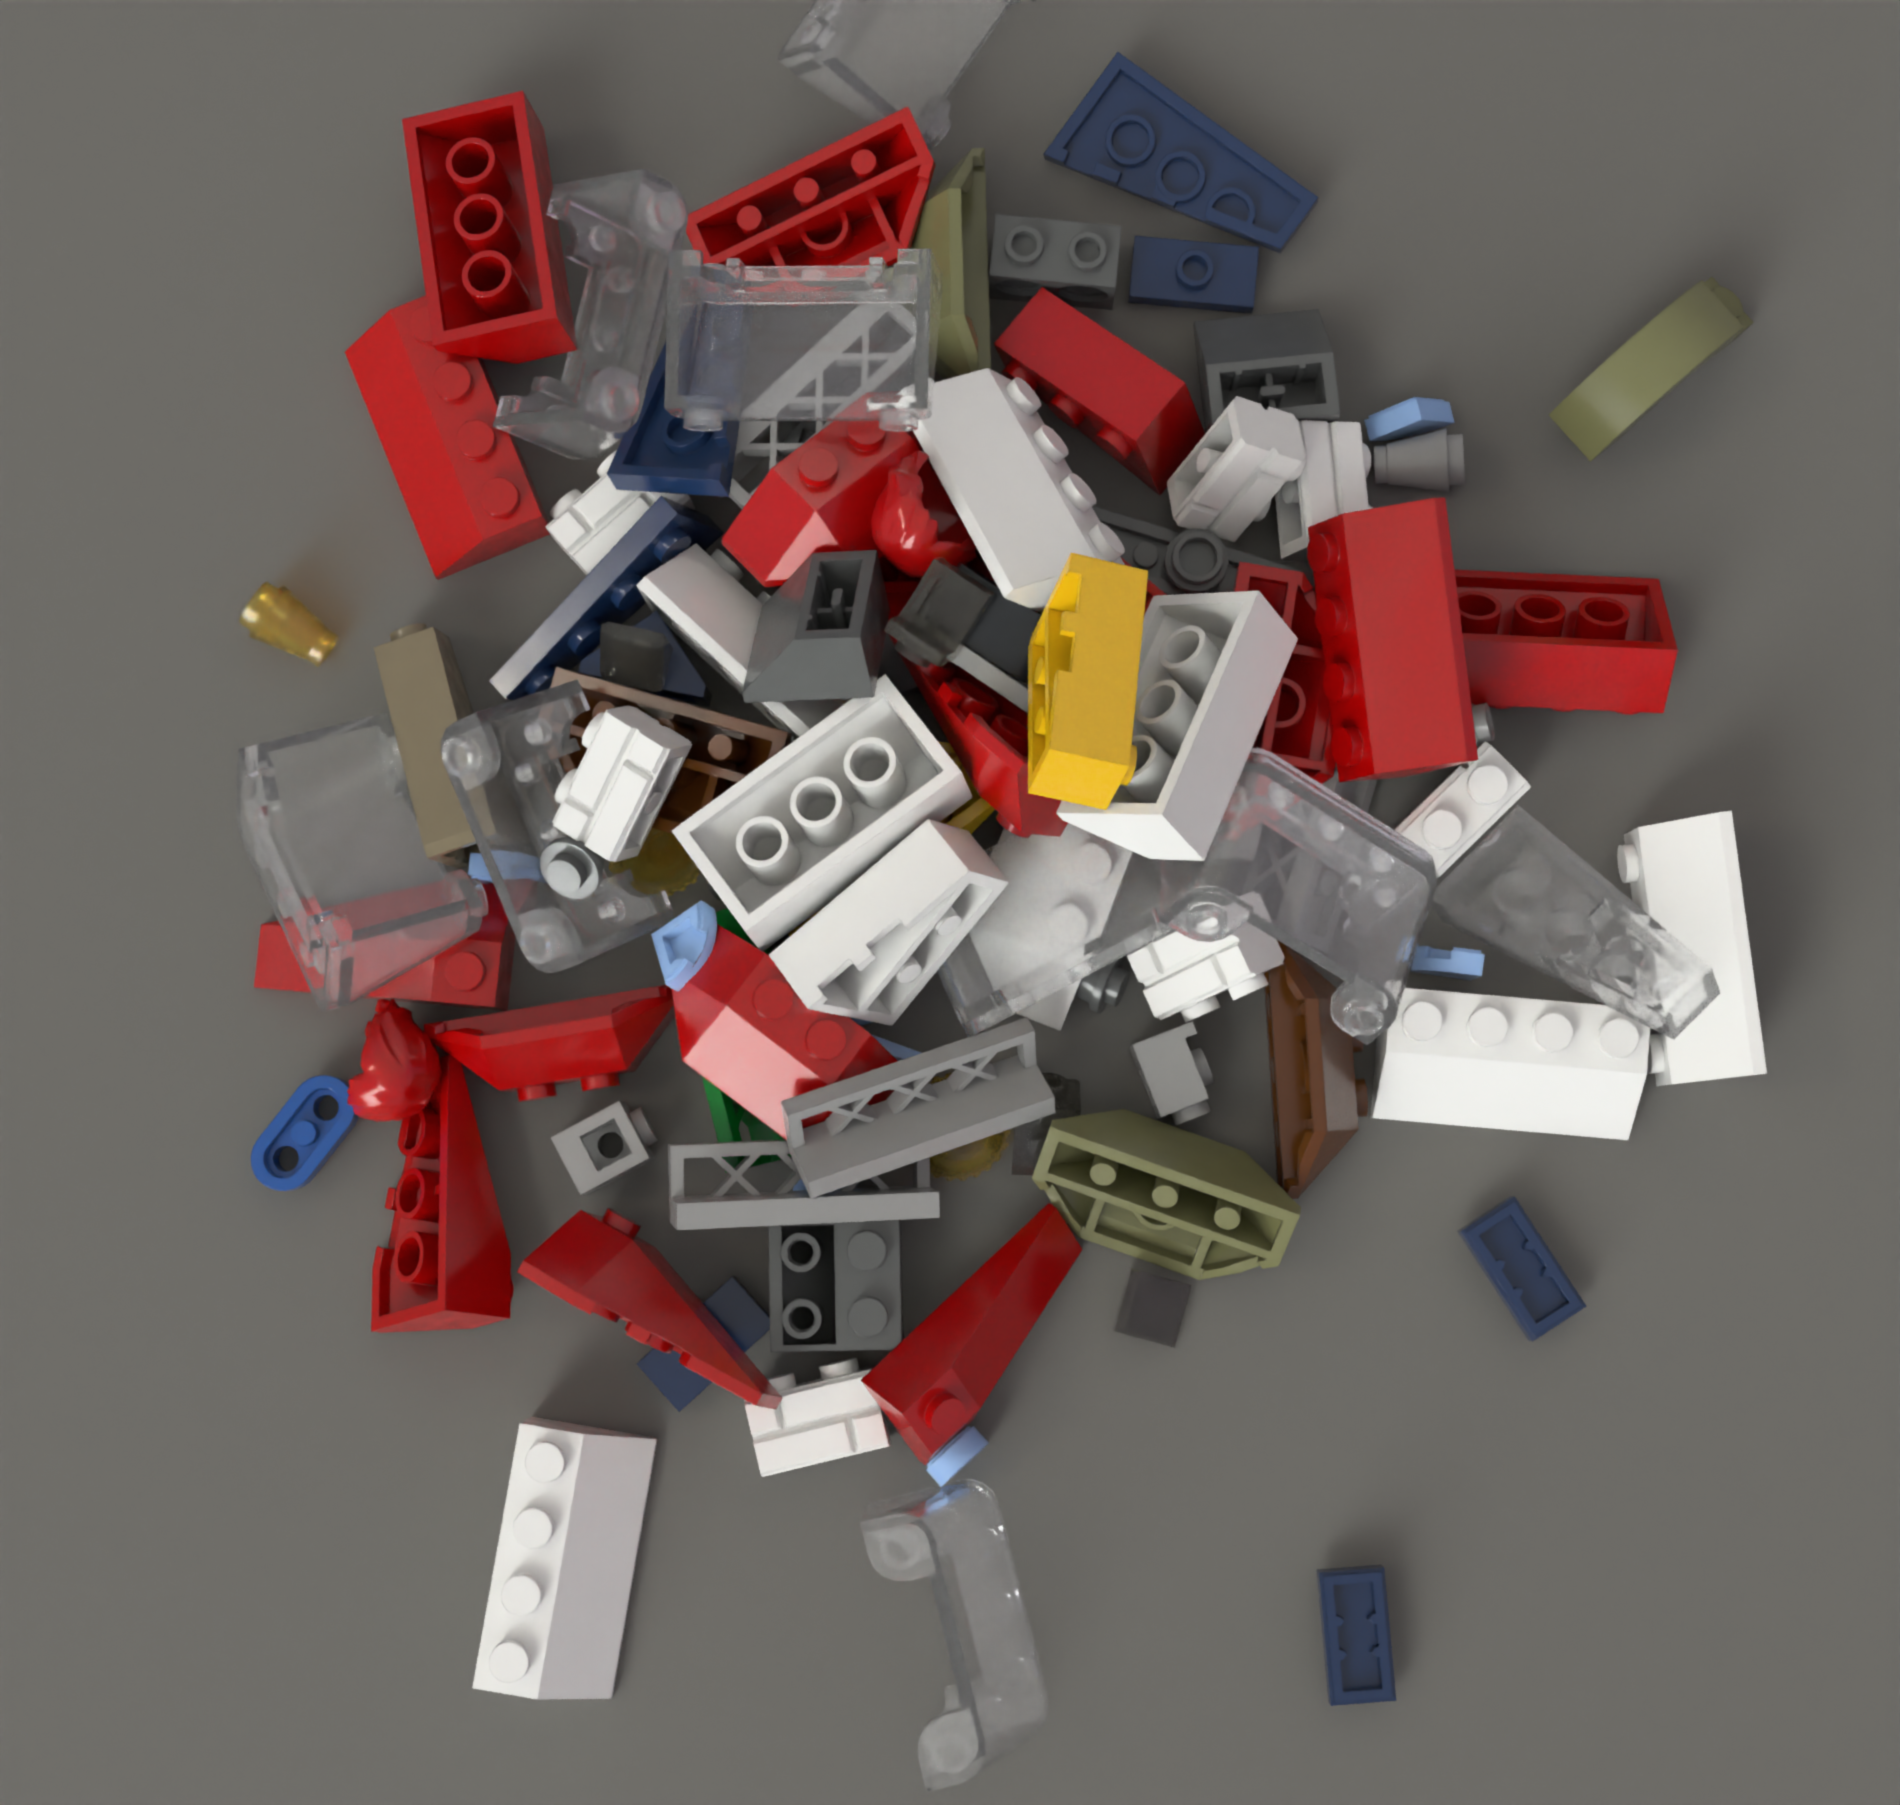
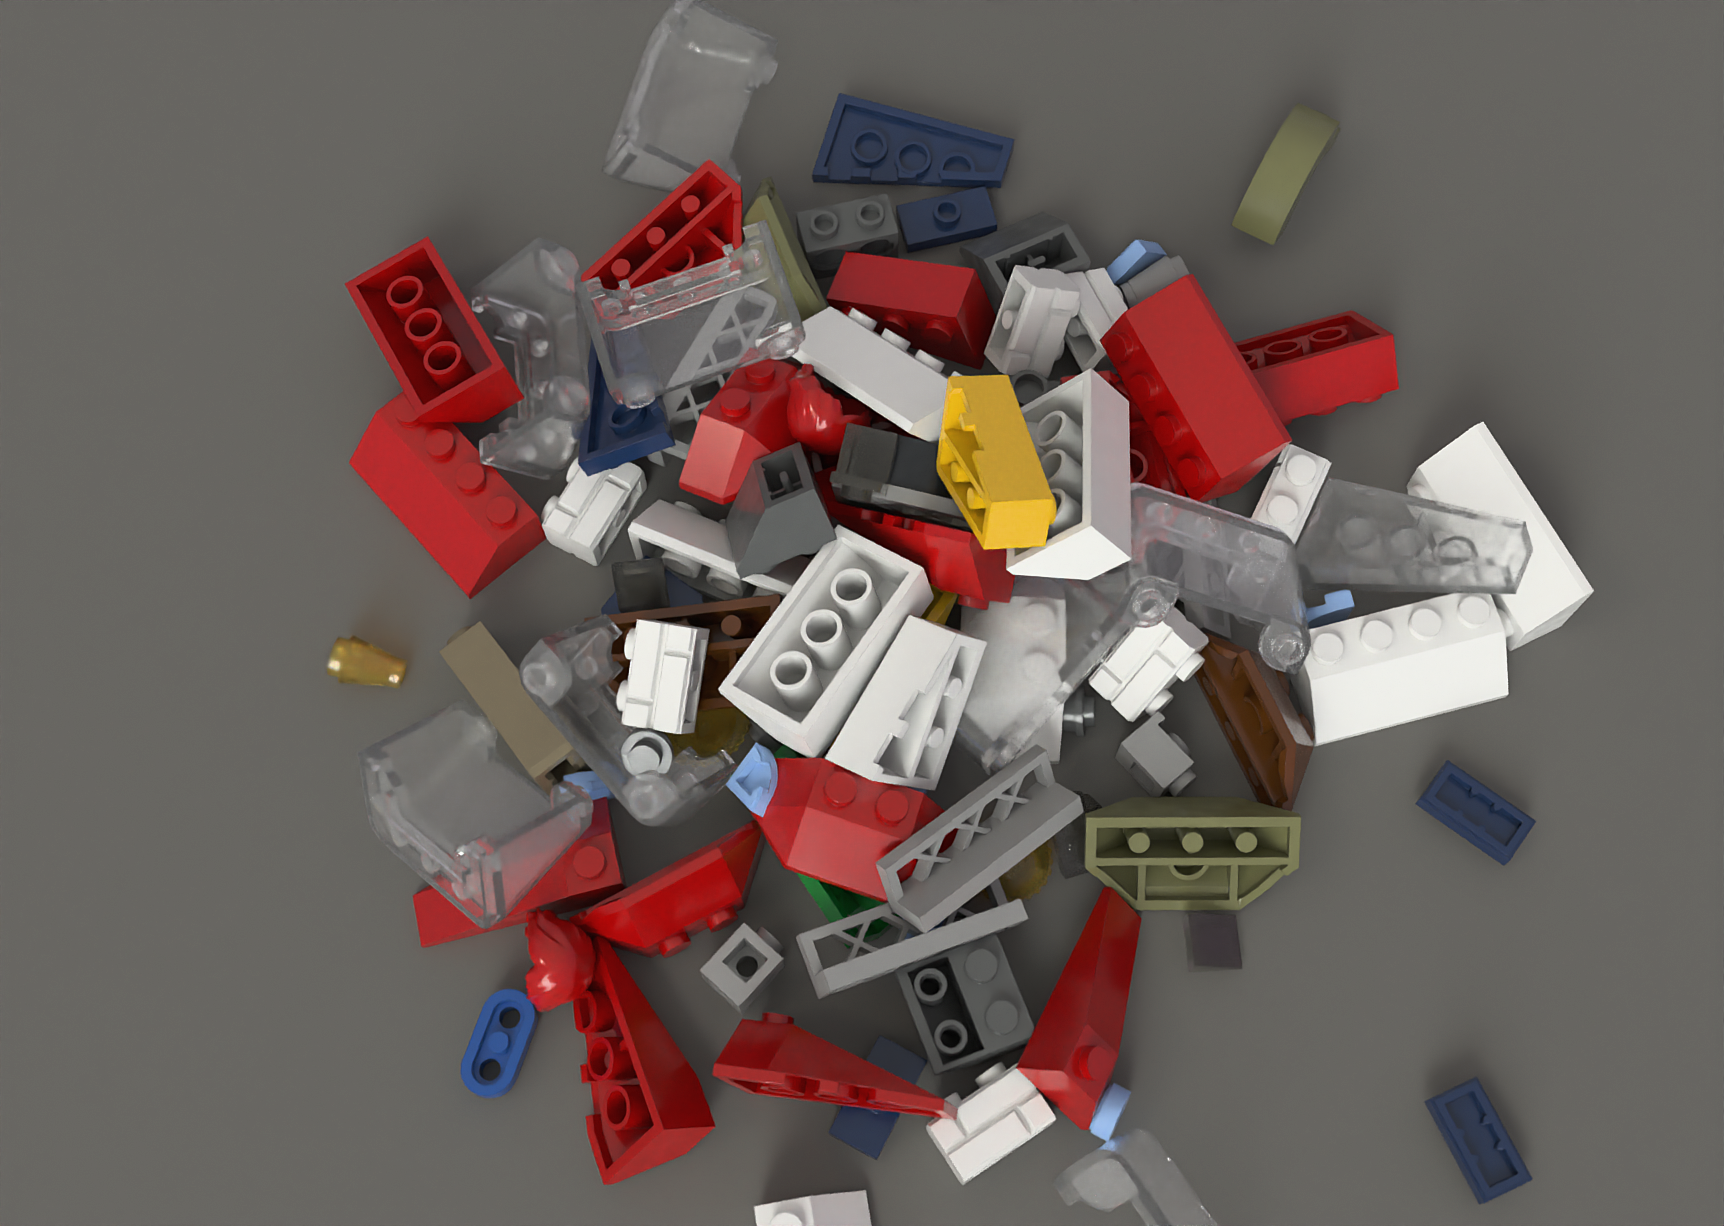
camera: 25 degrees left, 15 degrees down
(604, 596) = (608, 543): dark blue wing -> none

